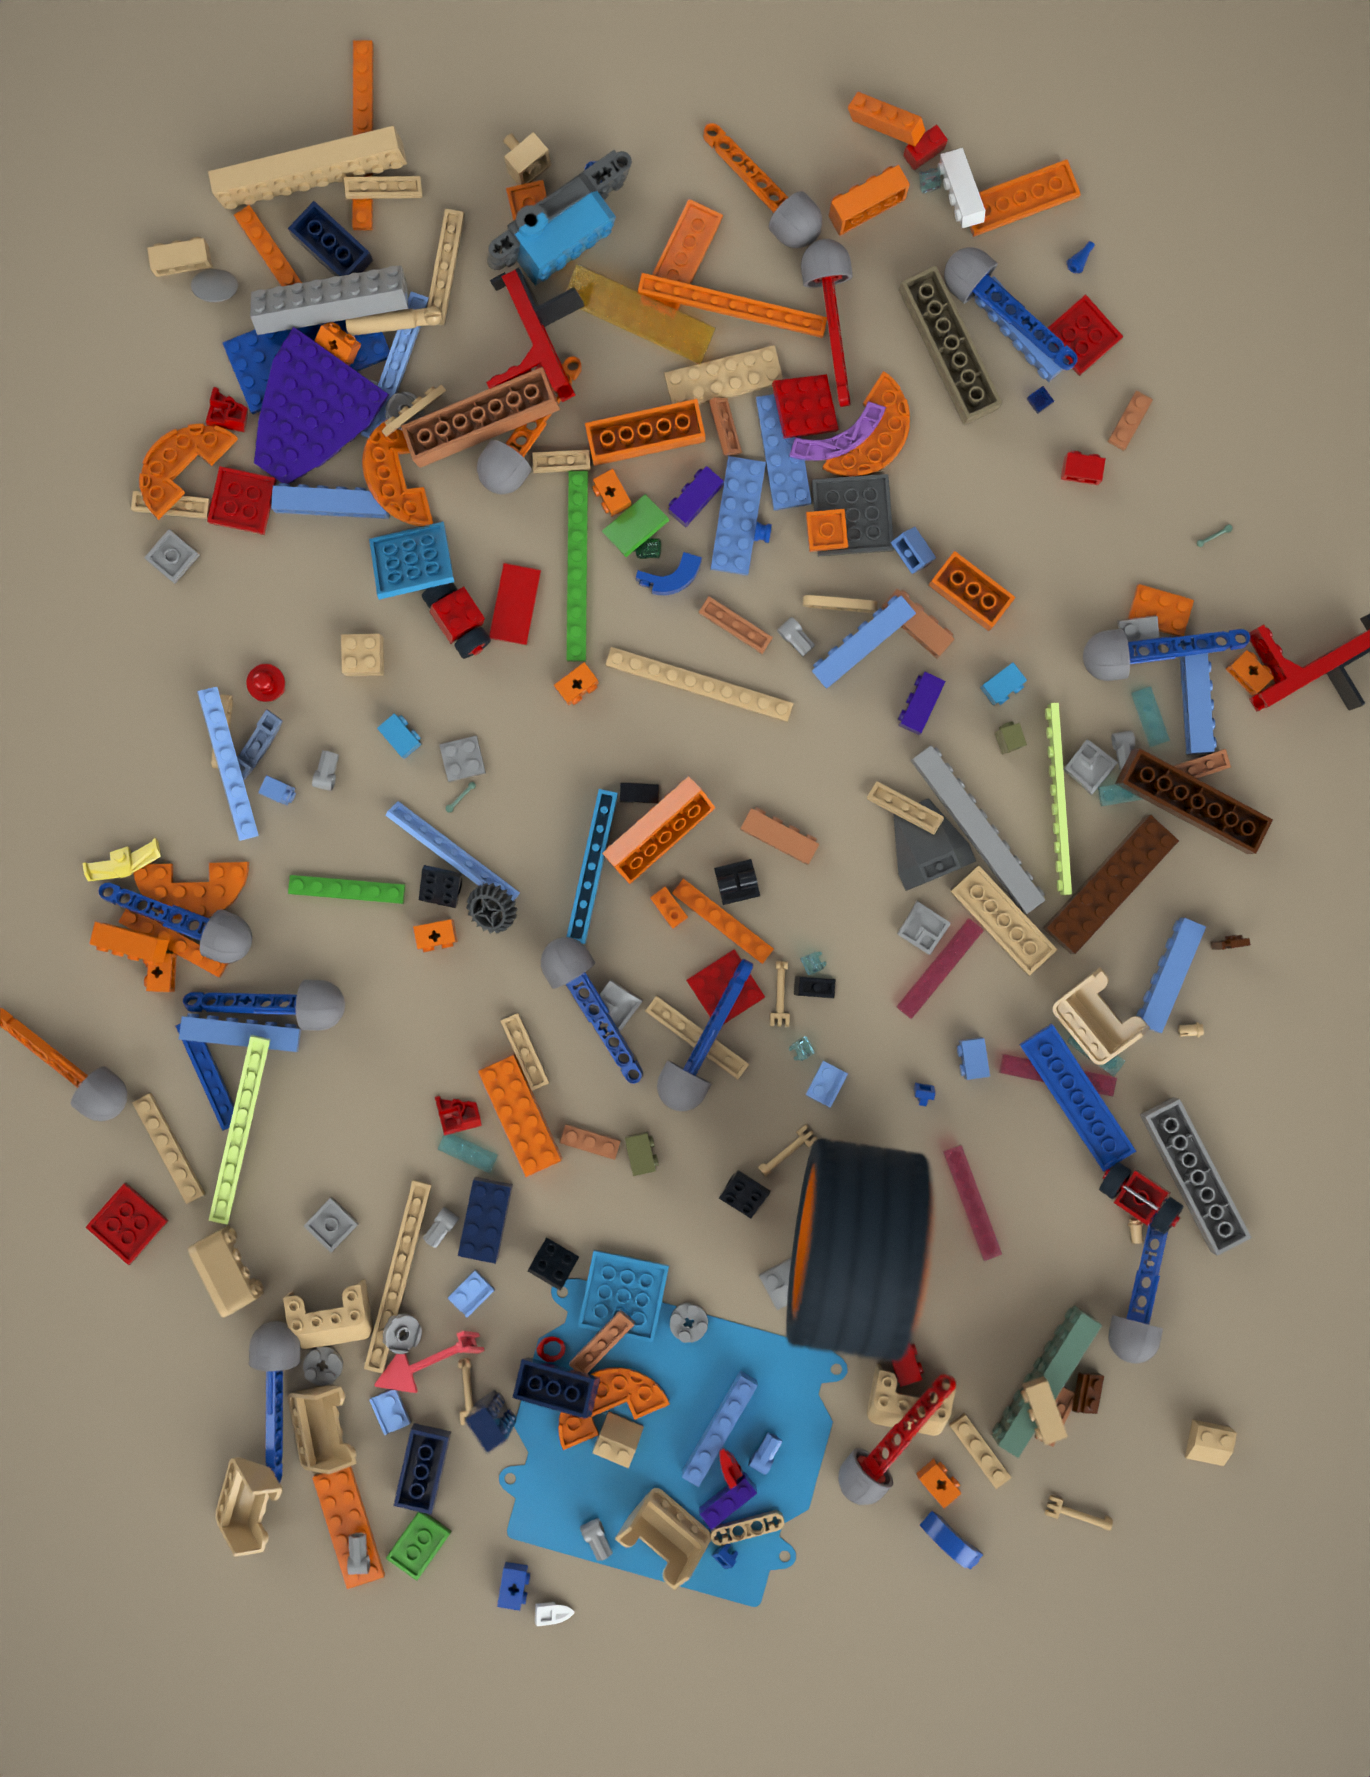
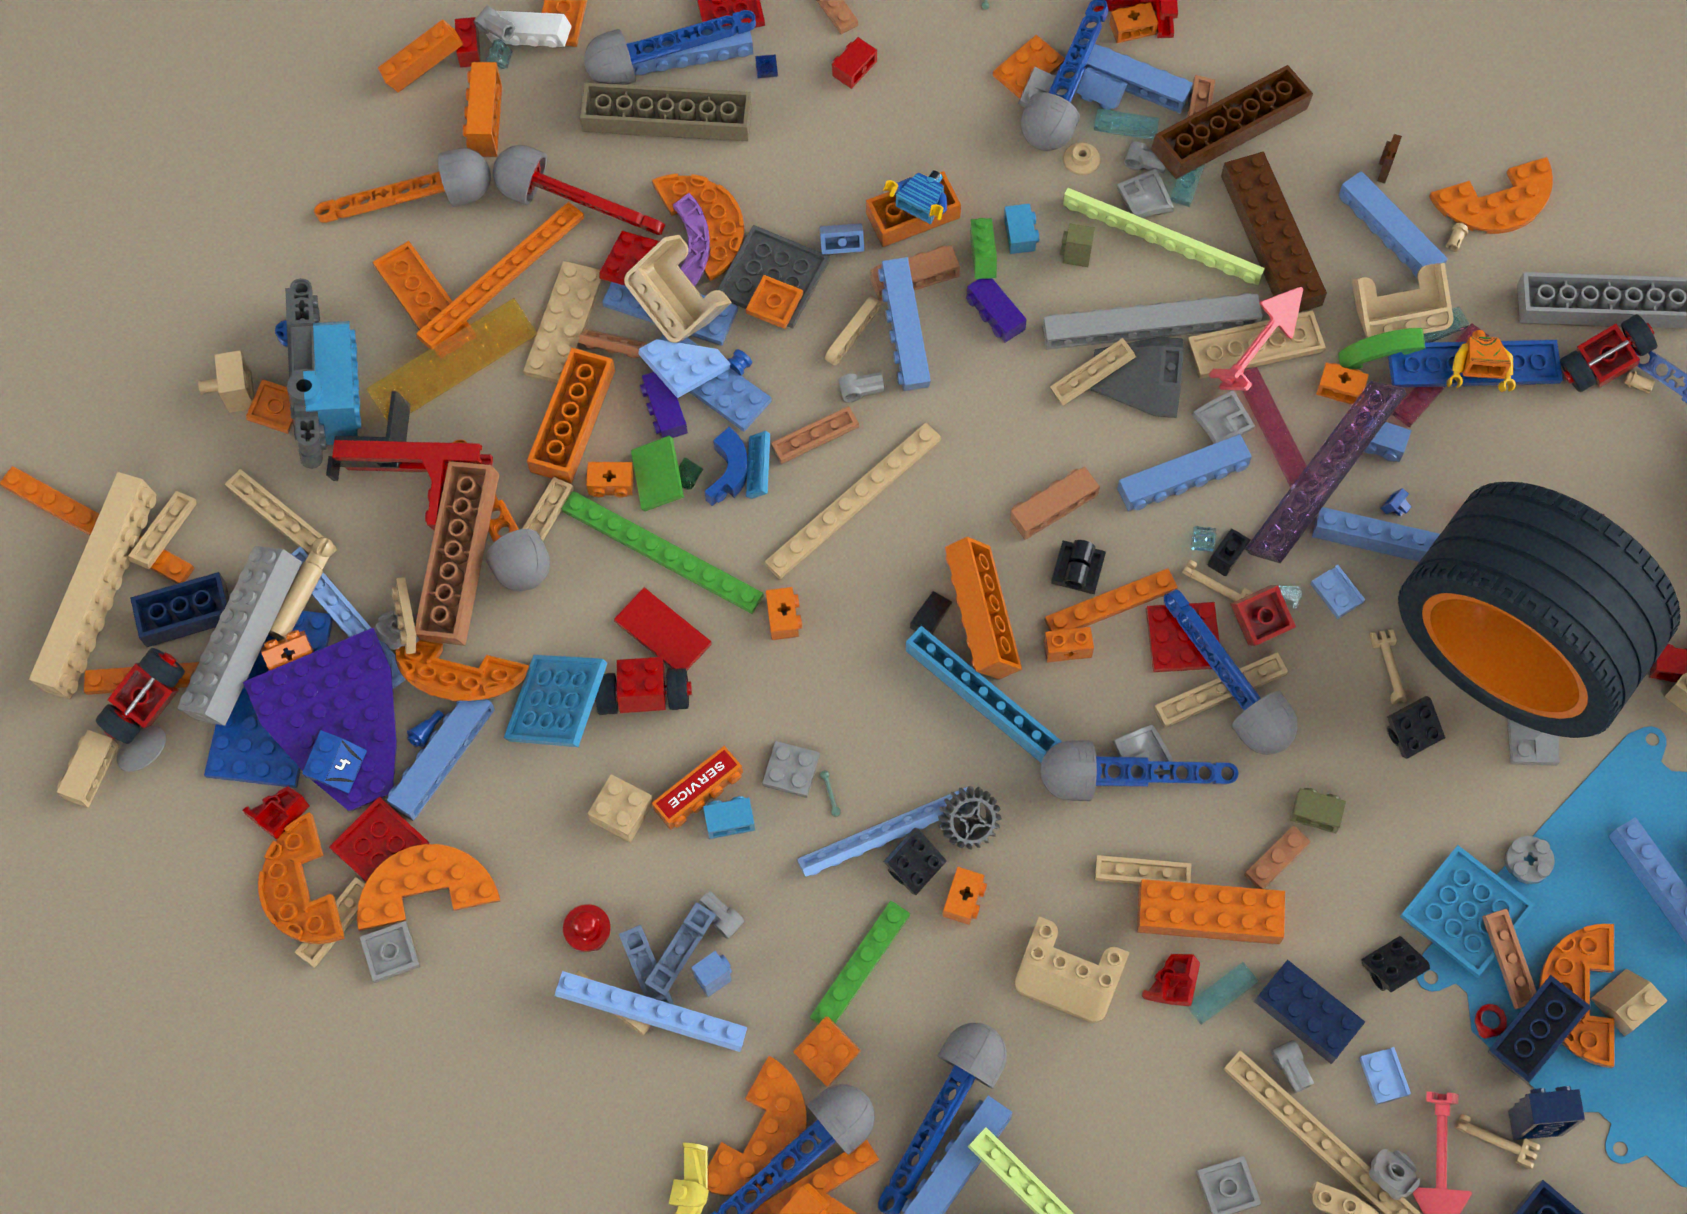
camera: 60 degrees left, 20 degrees down
(238, 542) = (422, 871): none -> orange plate
(245, 259) = (141, 696): none -> brick
(271, 900) = (827, 1051): none -> orange plate
(274, 430) = (334, 762): none -> blue slope
(282, 757) = (680, 949): none -> sand blue slope
(339, 477) = (420, 733): none -> blue cone
(409, 700) = (697, 788): none -> brick
(411, 1039) = (1067, 980): none -> tan windscreen
(686, 596) = (758, 465): none -> dark azure plate
(733, 492) = (683, 365): none -> light blue plate
(770, 1039) = (1263, 615): none -> red brick
(782, 447) = (669, 294): none -> tan windscreen
(860, 921) = (1184, 472): none -> medium blue brick
(888, 1095) = (1372, 534): none -> medium blue brick
(917, 1028) = (1325, 471): none -> clear purple plate
(947, 156) = (491, 22): none -> light grey piece
(964, 666) = (983, 248): none -> bright green brick
(978, 592) = (920, 195): none -> torso
(1001, 1013) = (1333, 388): none -> orange brick
(1036, 928) = (1283, 313): none -> coral piece
(1047, 1020) = (1382, 345): none -> bright green slope
(1079, 1103) = (1483, 358): none -> orange torso
(1092, 703) = (1078, 164): none -> tan piece
(1169, 680) = (1101, 88): none -> medium blue brick
(1238, 1055) = (1501, 210): none -> orange plate

